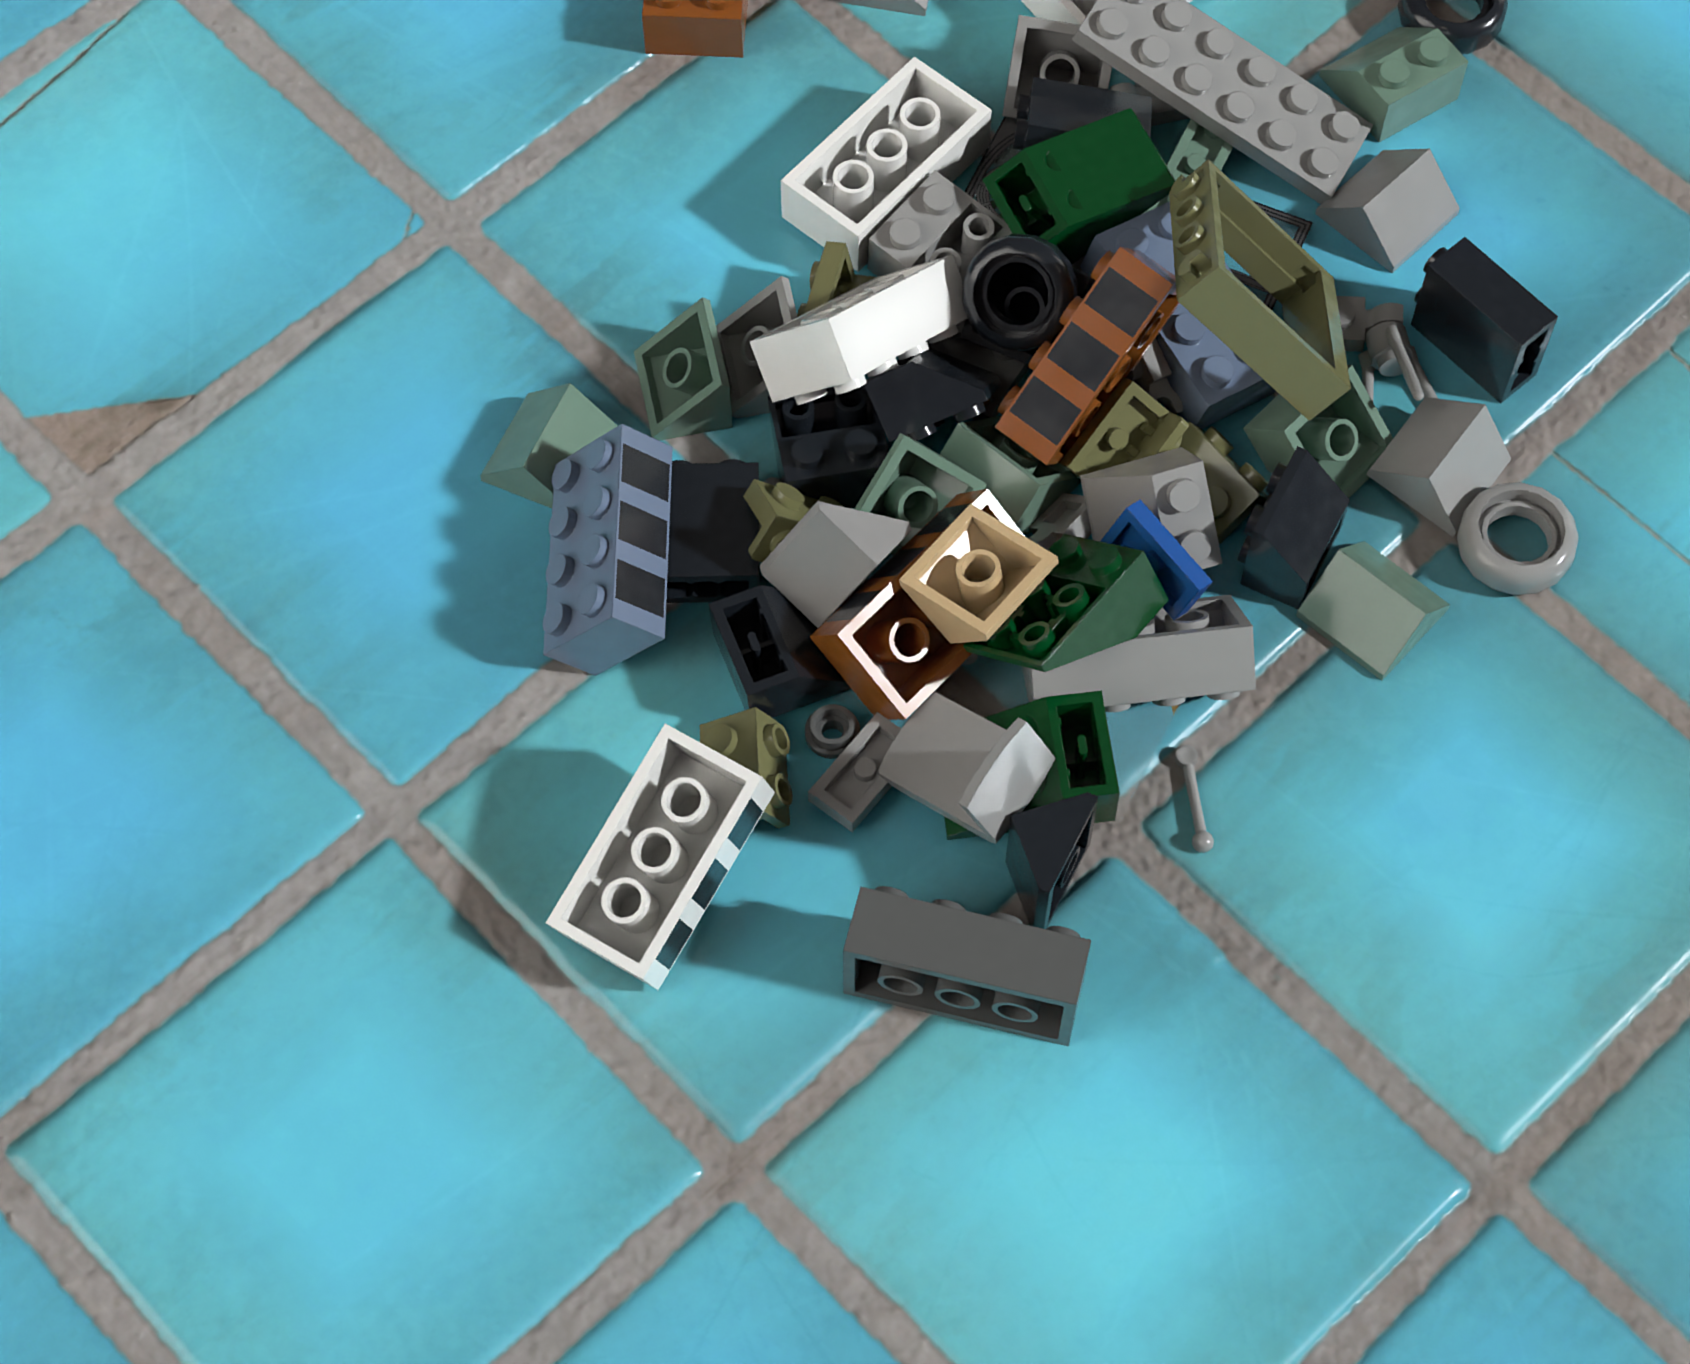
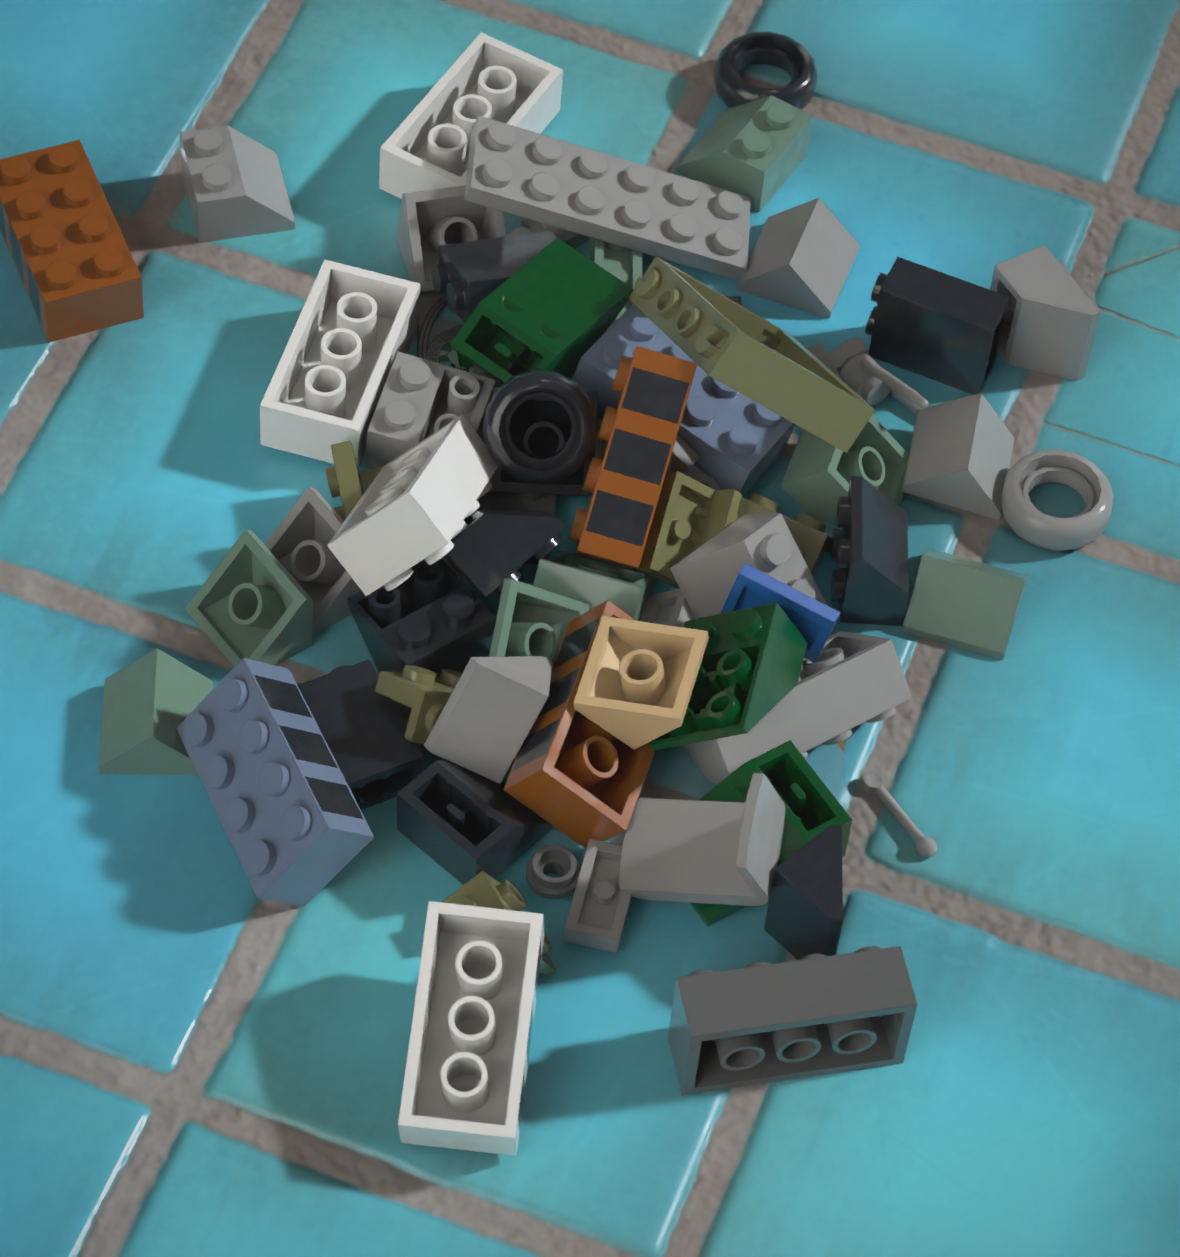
camera: 30 degrees left, 10 degrees down
(1596, 343) = (1047, 317): none -> light grey slope

